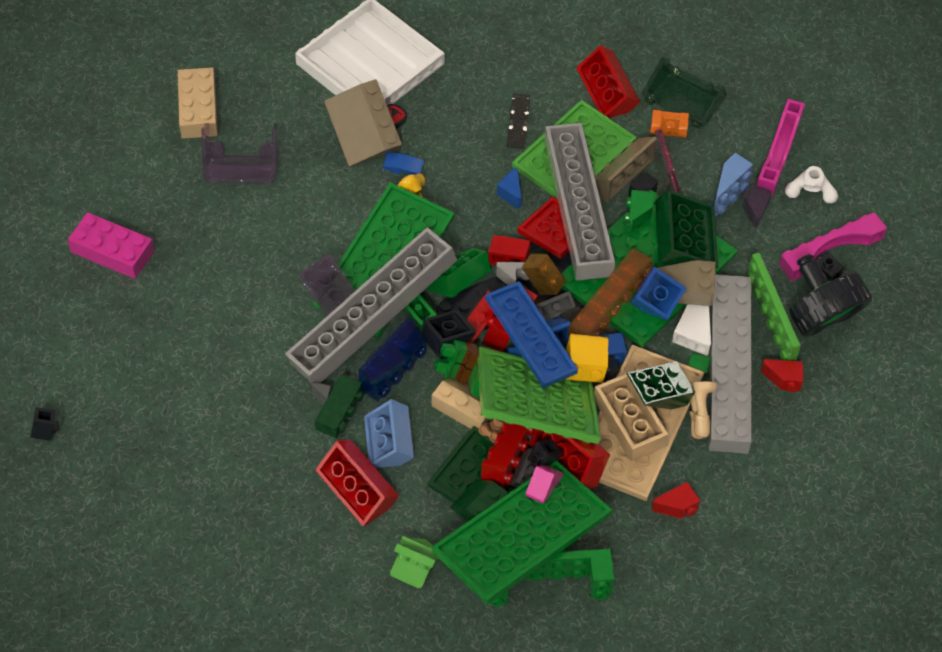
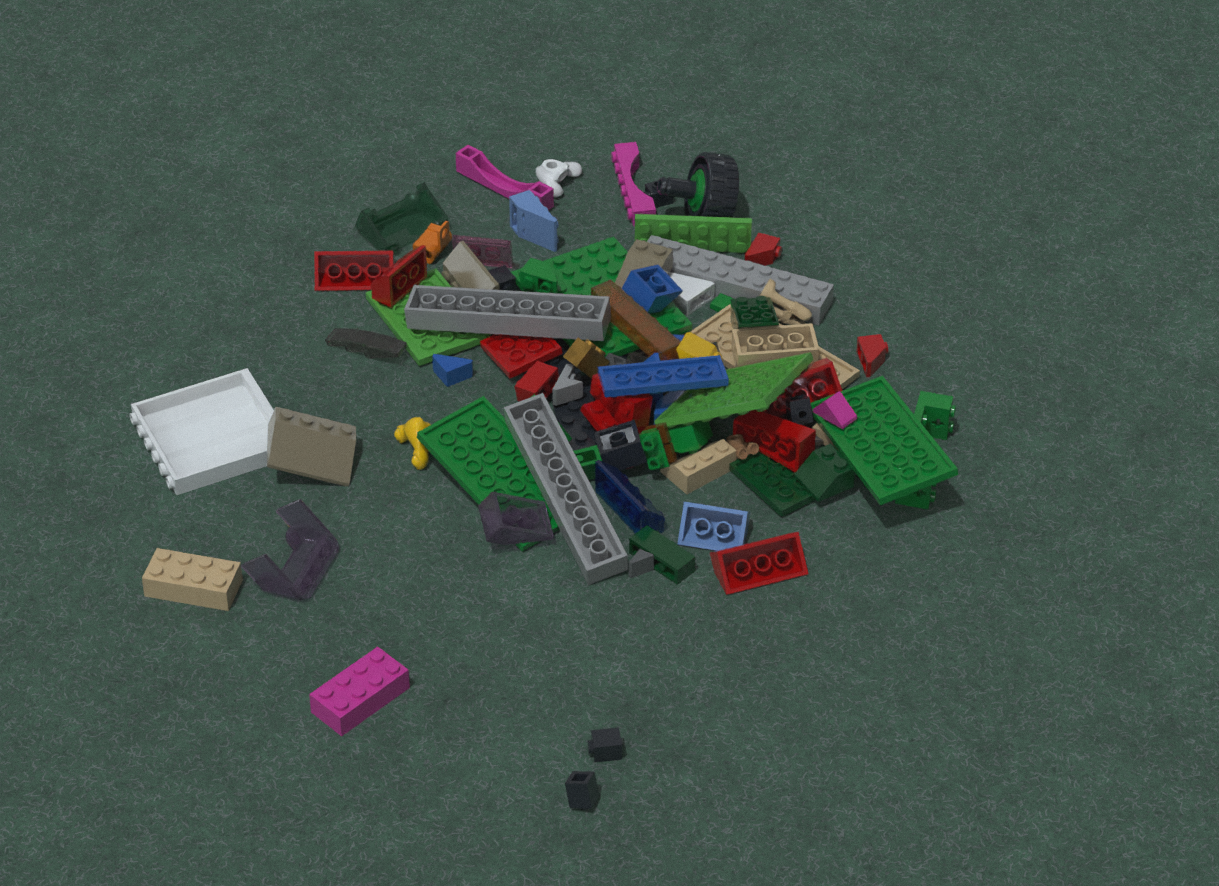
camera: 70 degrees left, 15 degrees down
(103, 427) = (605, 745): none -> black brick
(402, 163) = (371, 440): blue slope -> none
(413, 561) = (868, 538): bright green piece -> none
(598, 114) = (400, 277): none -> red slope
(685, 229) = (582, 257): dark green slope -> none
(755, 203) = (566, 215): clear purple slope -> none

